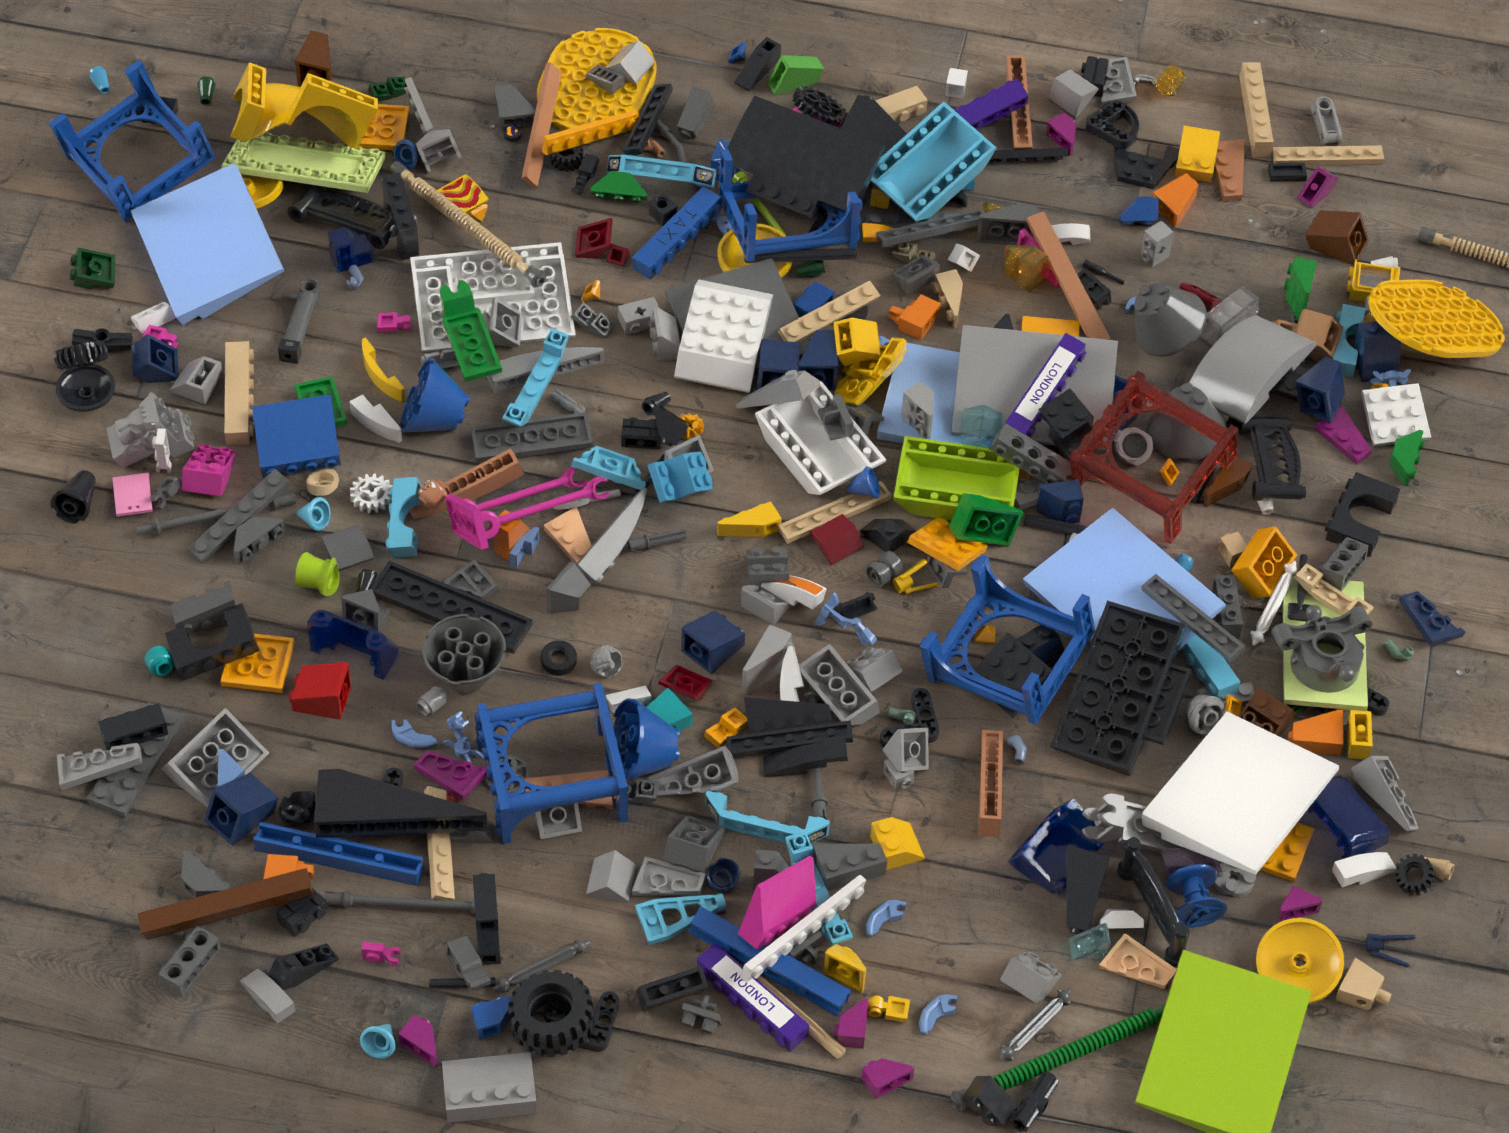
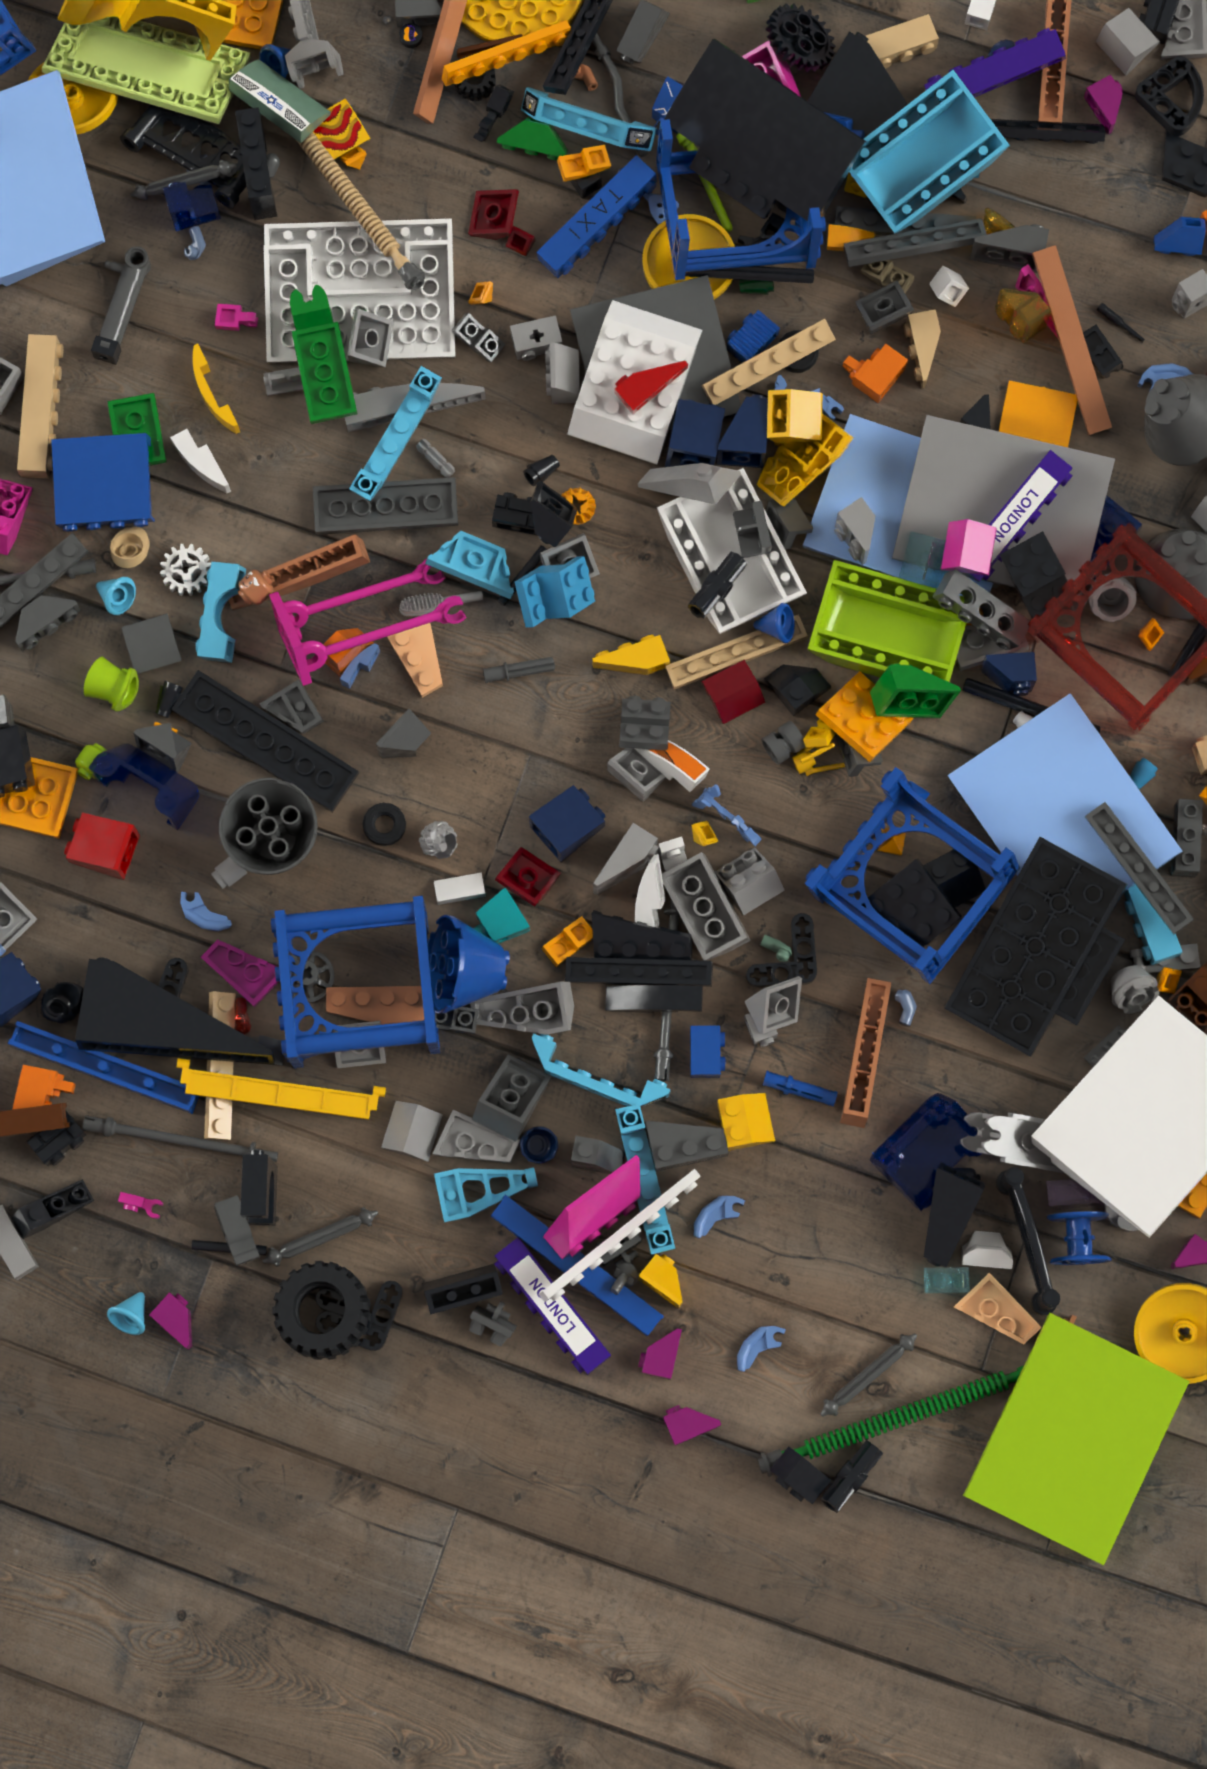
camera: 10 degrees right, 25 degrees up
(300, 634) = (85, 759): none -> lime head
(352, 228) = (191, 177): none -> dark grey wheel
(413, 174) = (278, 99): none -> sand green slope
(434, 402) = (269, 453): blue cone -> none
(462, 746) = (259, 936): medium blue piece -> none
(489, 1087) = (245, 1384): light grey slope -> none
(491, 1016) = (256, 1300): blue slope -> none
(493, 857) = (278, 1093): none -> yellow piece
(612, 540) = (462, 671): light grey slope -> none
(666, 195) = (583, 164): none -> light orange slope
(734, 324) = (645, 385): none -> red slope
(804, 648) = (672, 853): none -> white bracket
(812, 961) = (625, 1275): none -> dark grey plate
(813, 456) = (717, 585): none -> black piece
(815, 1030) = (602, 1334): tan axle -> none
(825, 638) = (703, 834): none -> yellow slope
(855, 795) = (705, 1051): none -> blue brick
(856, 607) = (743, 790): black hinge -> none
(895, 1009) = (713, 1337): yellow plate -> none
(913, 559) = (819, 736): none -> yellow plate
(913, 811) = (799, 1088): none -> blue pin
(1012, 406) = (969, 547): none -> slope
(1030, 976) = (873, 1314): light grey slope -> none
(1072, 232) = (1089, 260): white slope -> none

